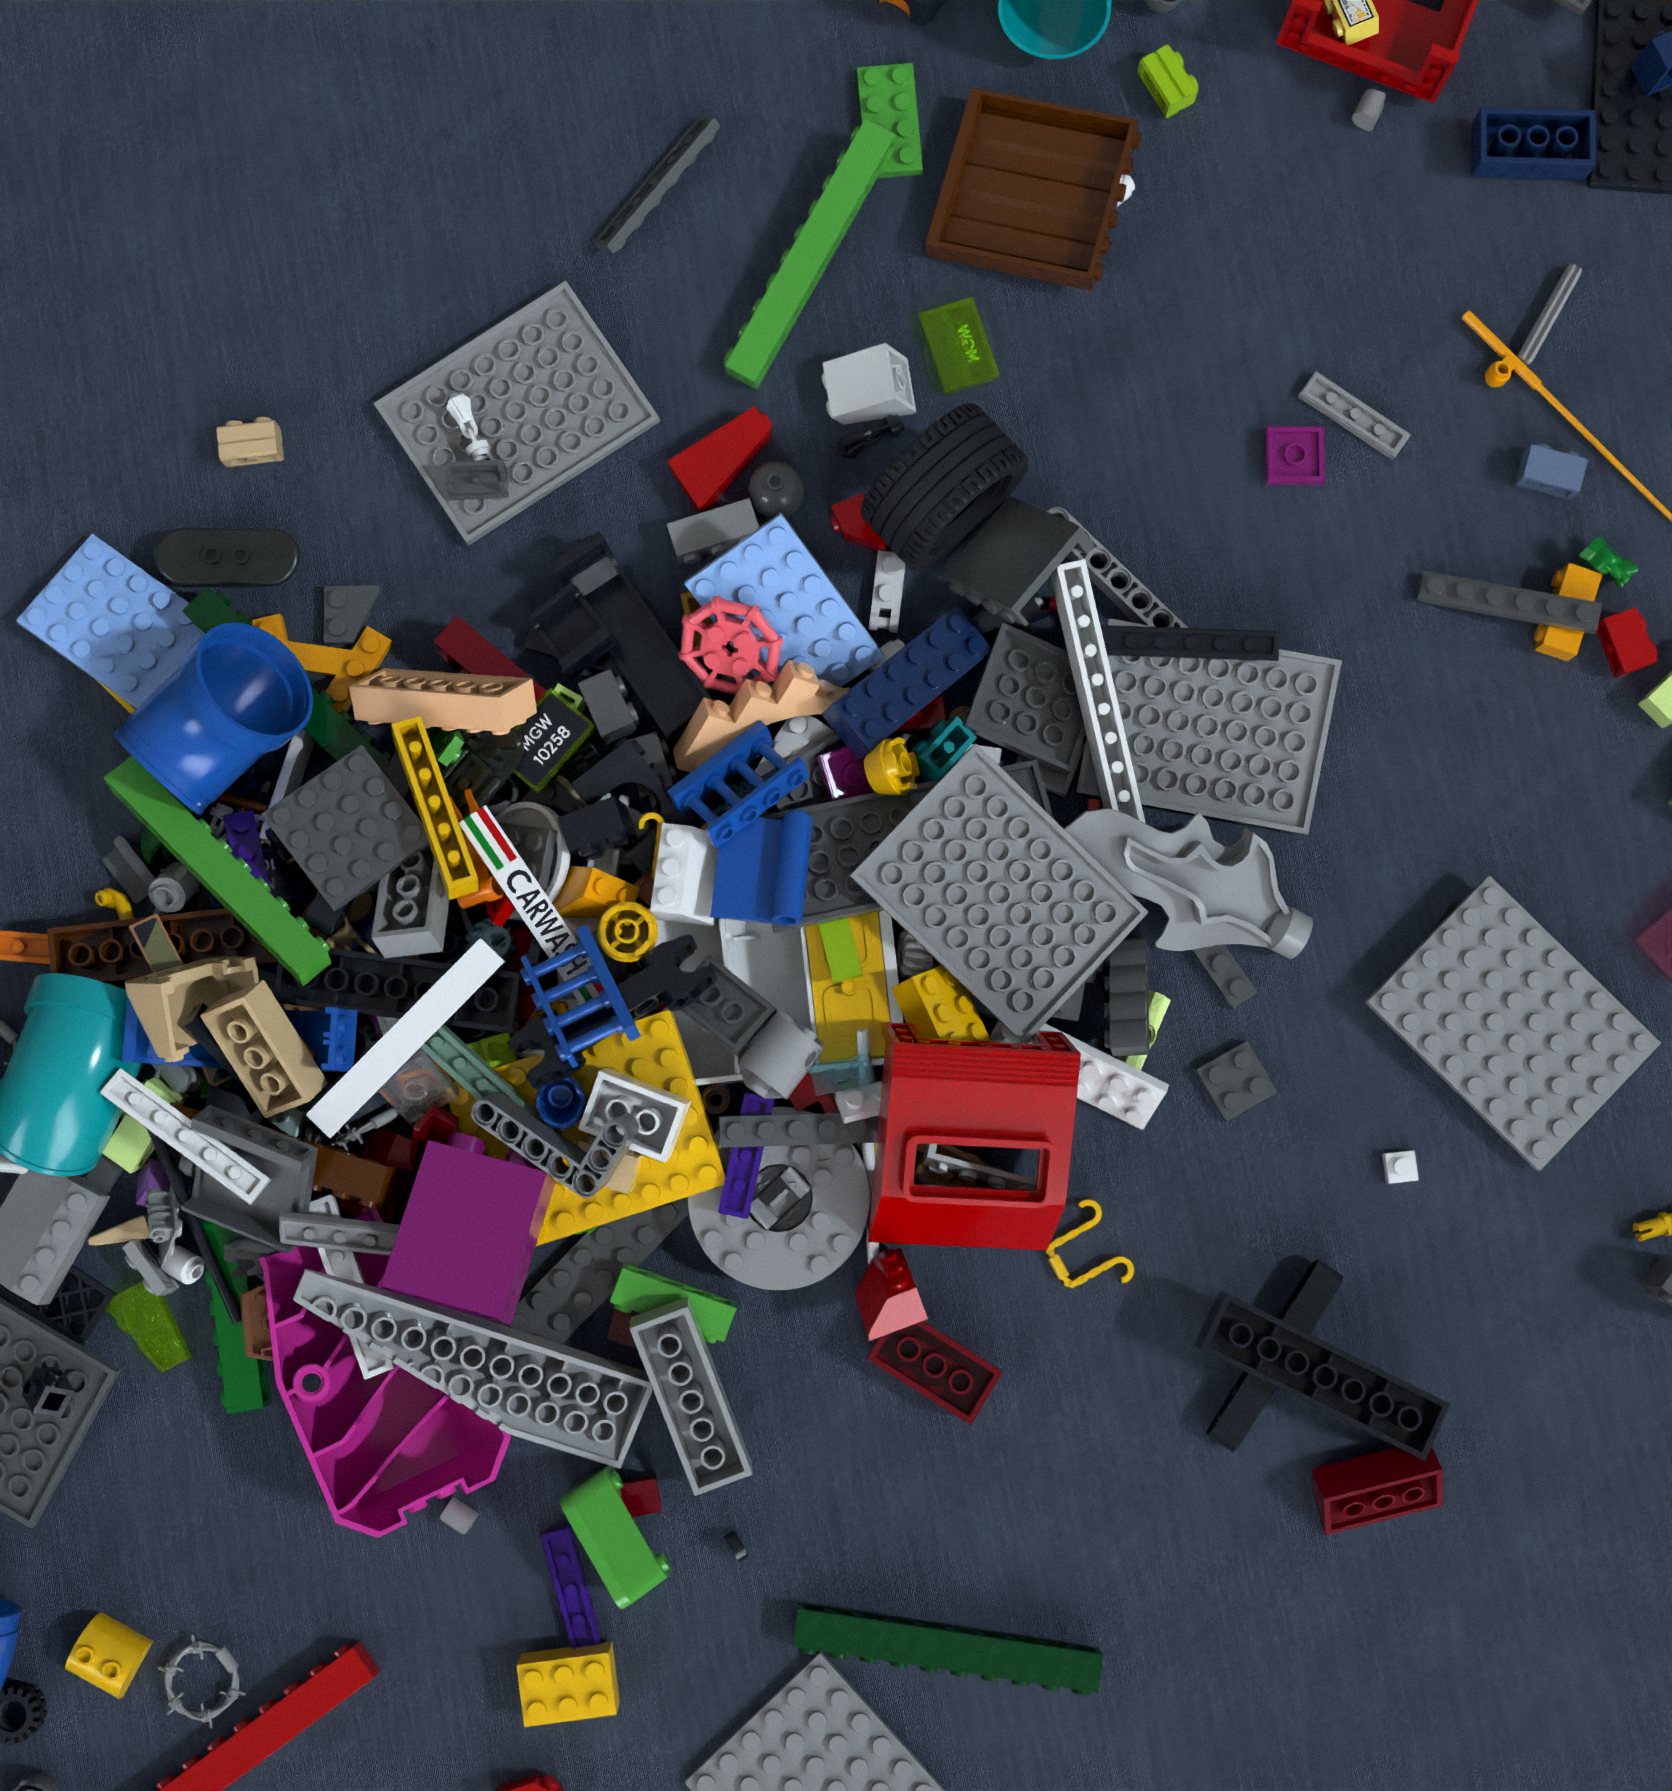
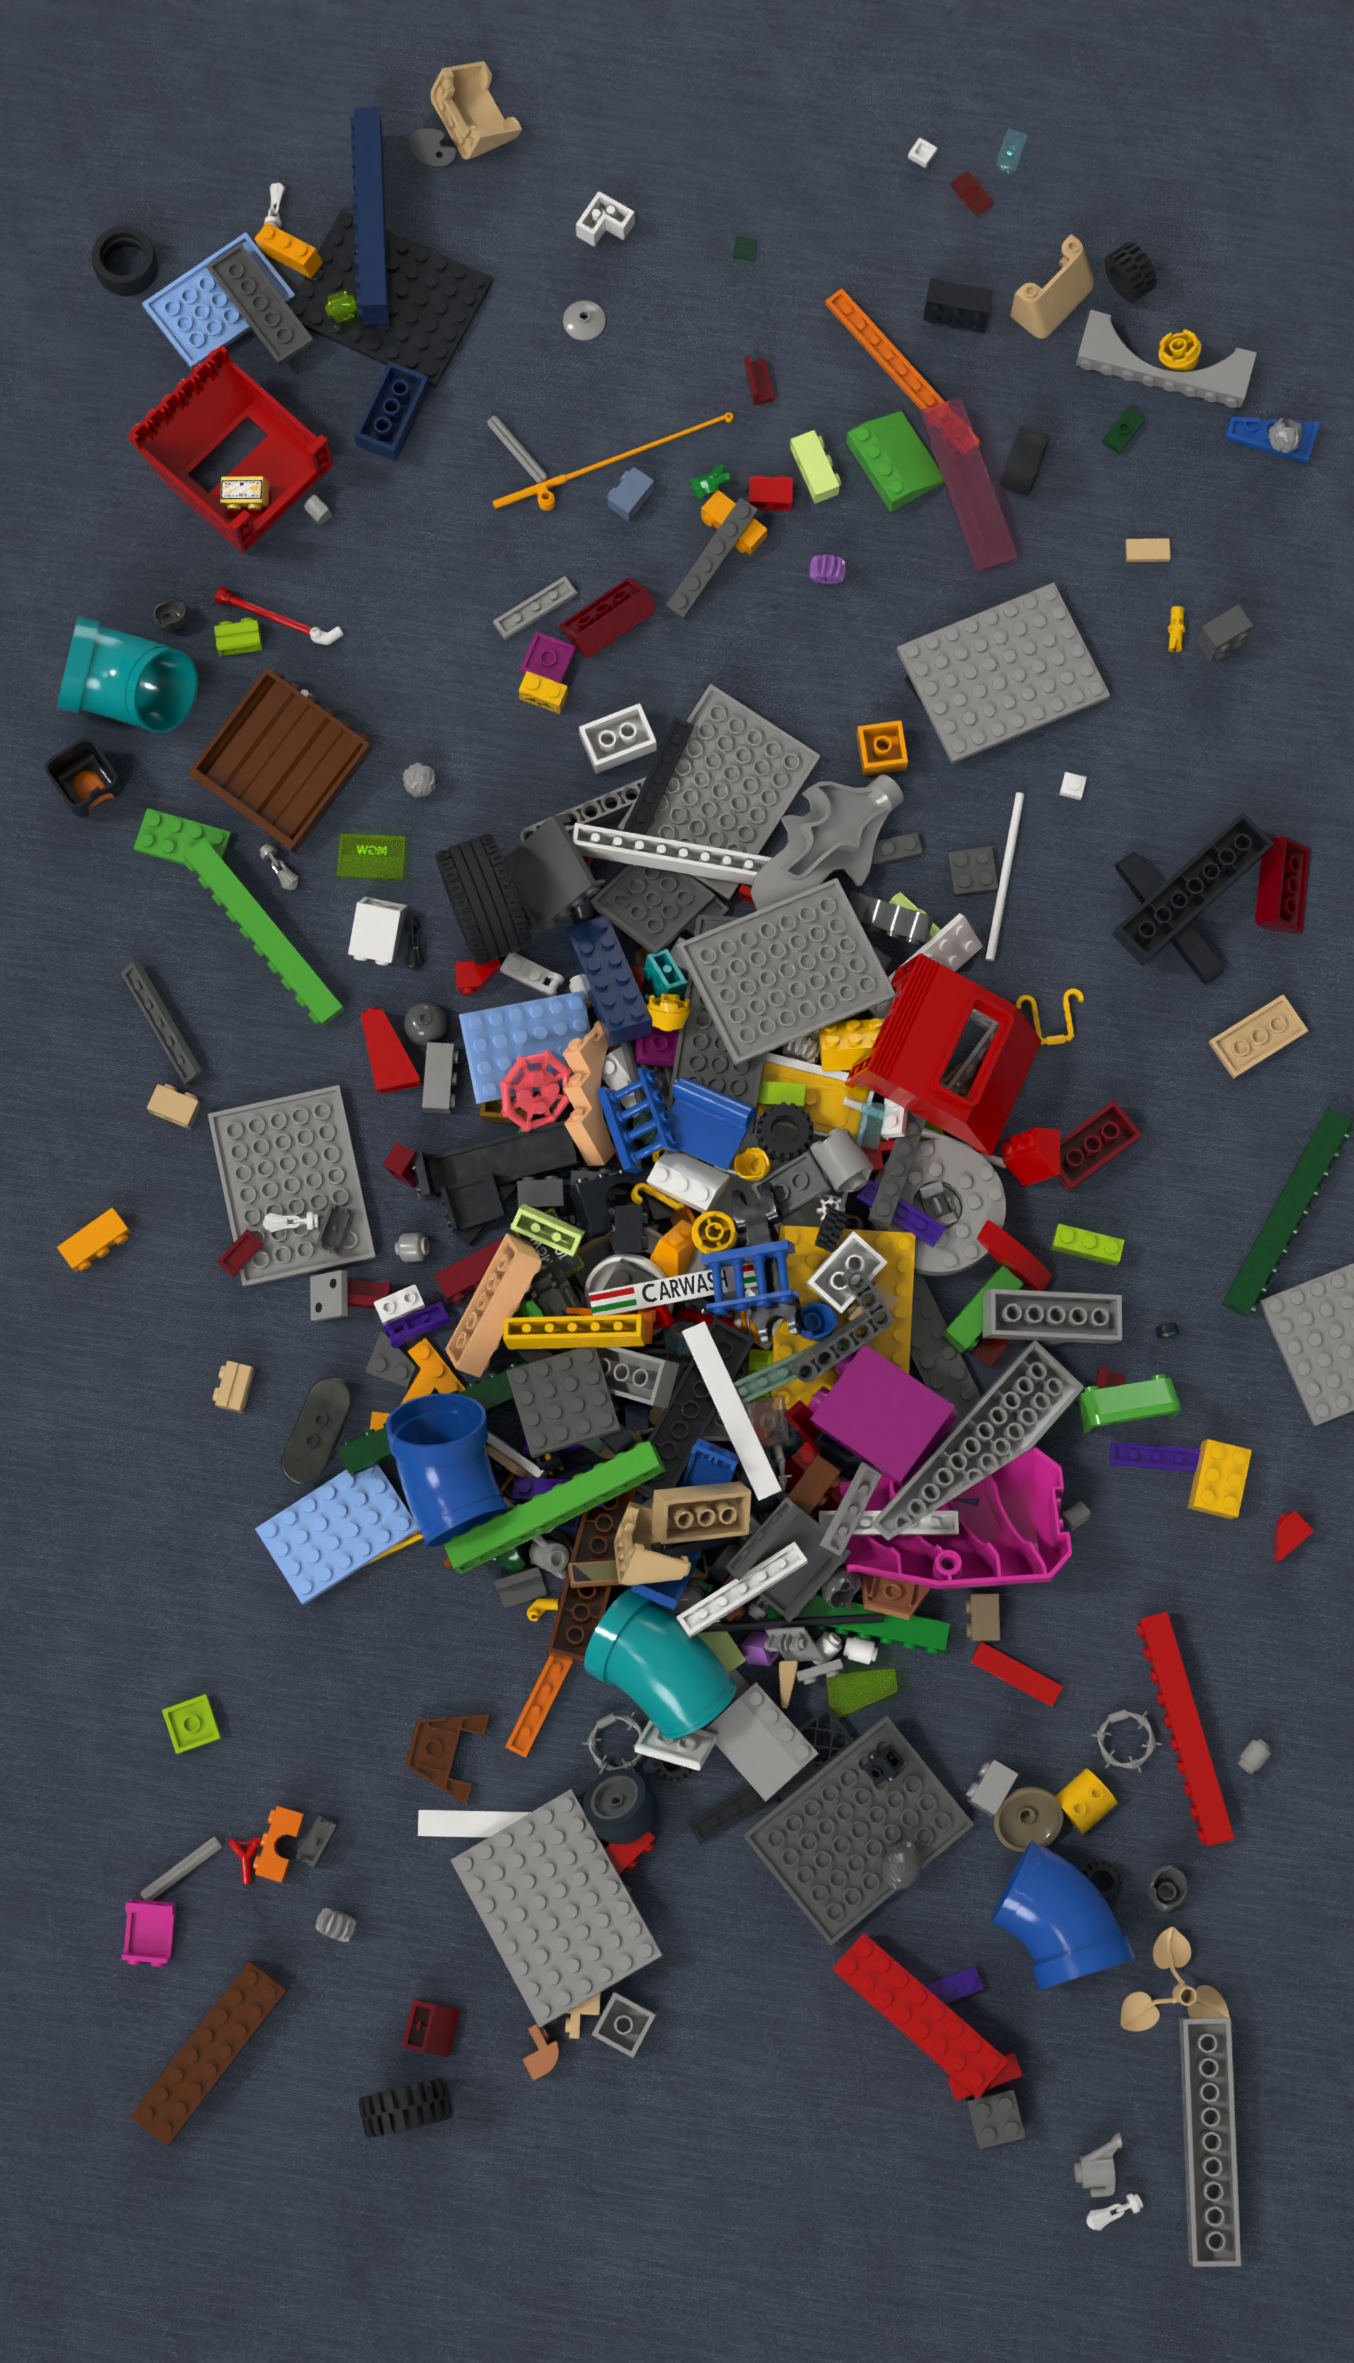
camera: 70 degrees left, 5 degrees down
(55, 1595) = (1039, 1824): none -> dark tan dish
(77, 1535) = (991, 1787): none -> light grey brick
(195, 1308) = (860, 1650): none -> white brick
(236, 1512) = (1016, 1674): none -> red tile
(264, 795) = (506, 1461): none -> tan tile
(279, 1450) = (984, 1618): none -> dark tan brick
(365, 214) = (94, 1240): none -> light orange brick
(396, 507) = (328, 1295): none -> light grey tile
(402, 623) = (416, 1324): none -> dark purple plate
(409, 384) = (240, 1253): none -> dark red tile
(415, 593) = (399, 1304): none -> white bracket
(419, 550) = (365, 1293): none -> dark red panel
(494, 581) = (412, 1247): none -> light grey head
(557, 727) = (547, 1229): none -> yellowish green brick
(560, 239) = (174, 1106): none -> tan brick
(584, 521) = (399, 1164): none -> dark red panel
(680, 1075) = (831, 1229): none -> black tyre
(716, 1074) = (830, 1203): none -> white gear
(734, 946) = (752, 1164): none -> yellow hair
(751, 1318) = (1014, 1256): none -> red slope
(771, 952) = (781, 1113): none -> black tyre
(806, 1405) = (1087, 1245): none -> lime brick
(891, 259) = (287, 878): none -> light grey piece
(1074, 361) = (419, 780): none -> light grey piece
(1164, 1527) = (1258, 1036): none -> tan plate
(1211, 183) = (325, 638): none -> white arm
(1212, 46) = (224, 597): none -> red piece
(1225, 576) = (617, 738): none -> white brick
(1245, 1124) = (1004, 879): none -> white piece
(1248, 465) = (543, 692): none -> yellow brick
(1348, 907) = (882, 748): none -> light orange brick
(1378, 507) = (608, 617): none -> dark red slope
(1555, 750) = (827, 569): none -> medium lavender gear
(1640, 25) = (341, 306): none -> clear neon green head

